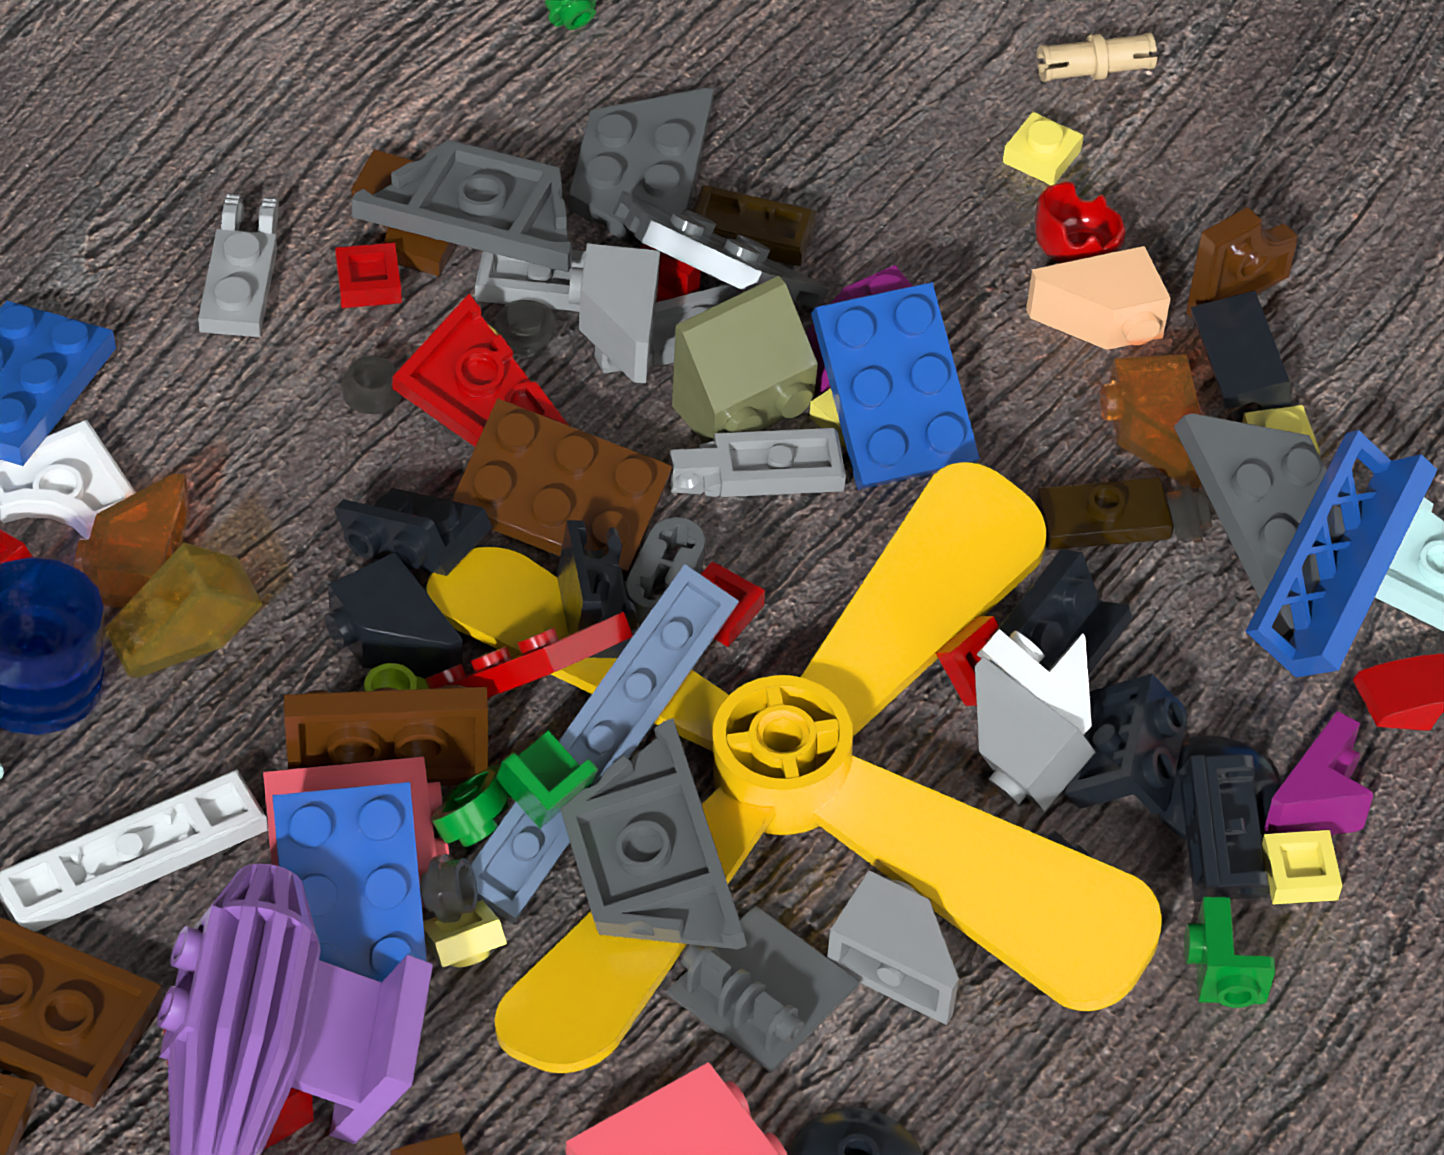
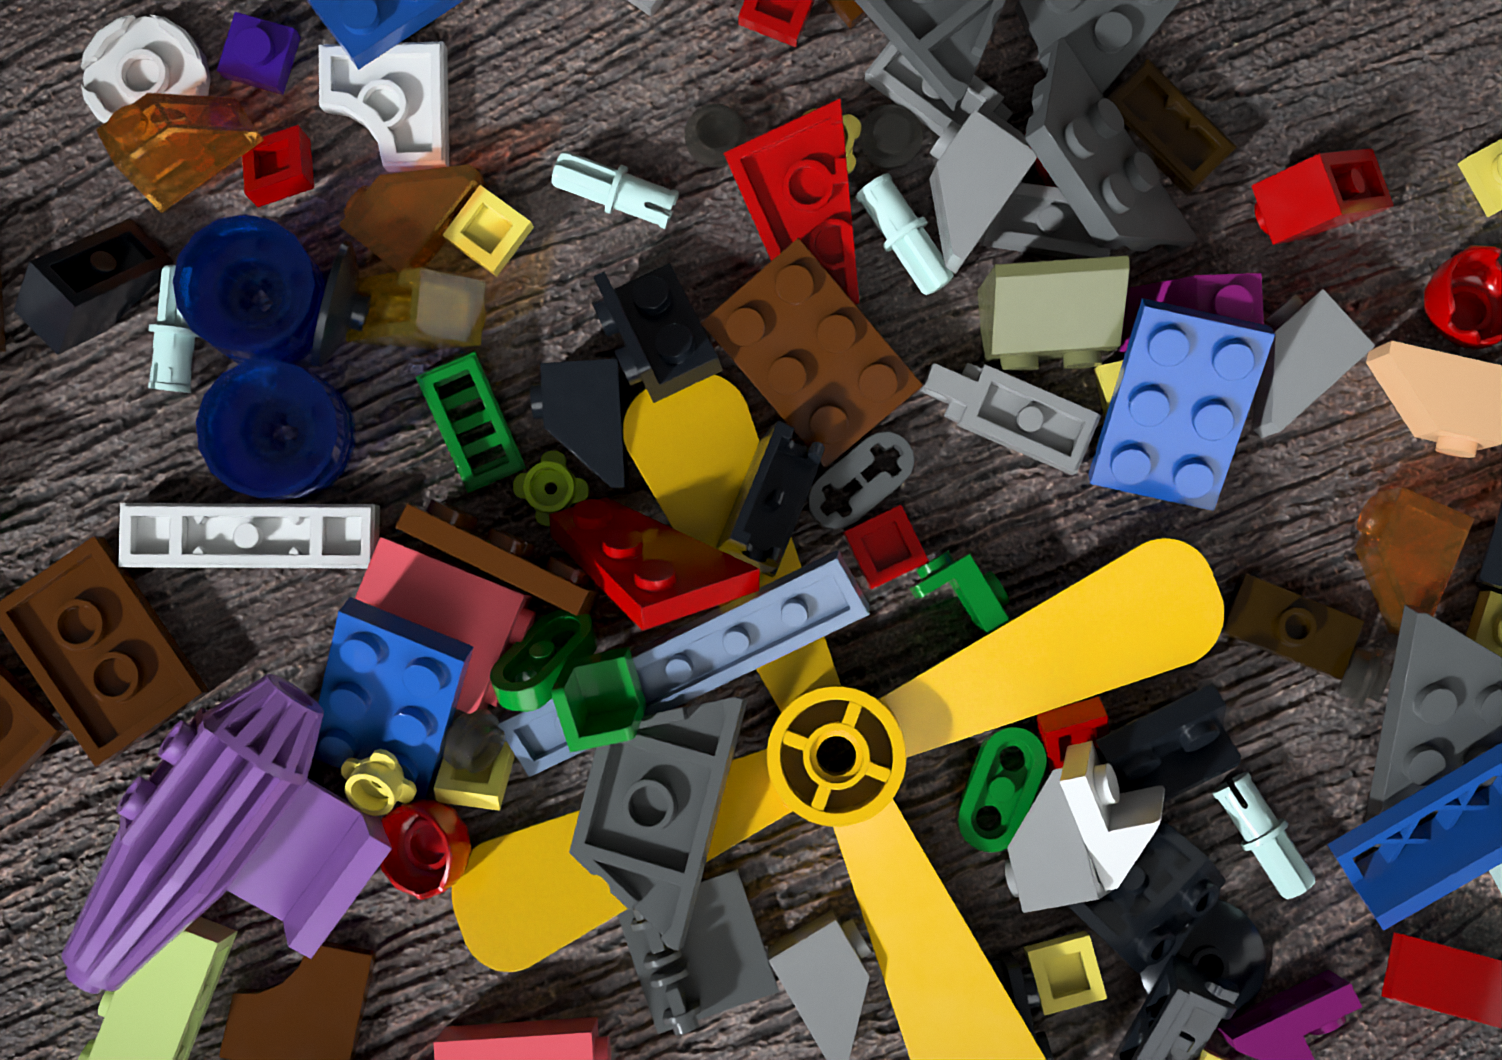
camera: 35 degrees right, 35 degrees up
(117, 733) = (239, 424): none -> clear blue wheel
(123, 621) = (341, 306): none -> black dish
(215, 525) = (488, 230): none -> light yellow plate
(279, 648) = (451, 370): none -> green slope
(308, 457) = (614, 188): none -> light aqua axle
(377, 936) = (376, 783): none -> light yellow plate
(461, 1008) = (427, 847): none -> red hair
(583, 384) = (905, 234): none -> light aqua axle
(805, 595) = (978, 593): none -> green bracket
(905, 214) = (1320, 195): none -> red slope
(944, 737) = (1005, 789): none -> green plate
(978, 318) = (1308, 354): none -> light grey slope
(1106, 834) = (1065, 972): none -> light yellow plate
(1193, 662) = (1266, 837): none -> light aqua axle

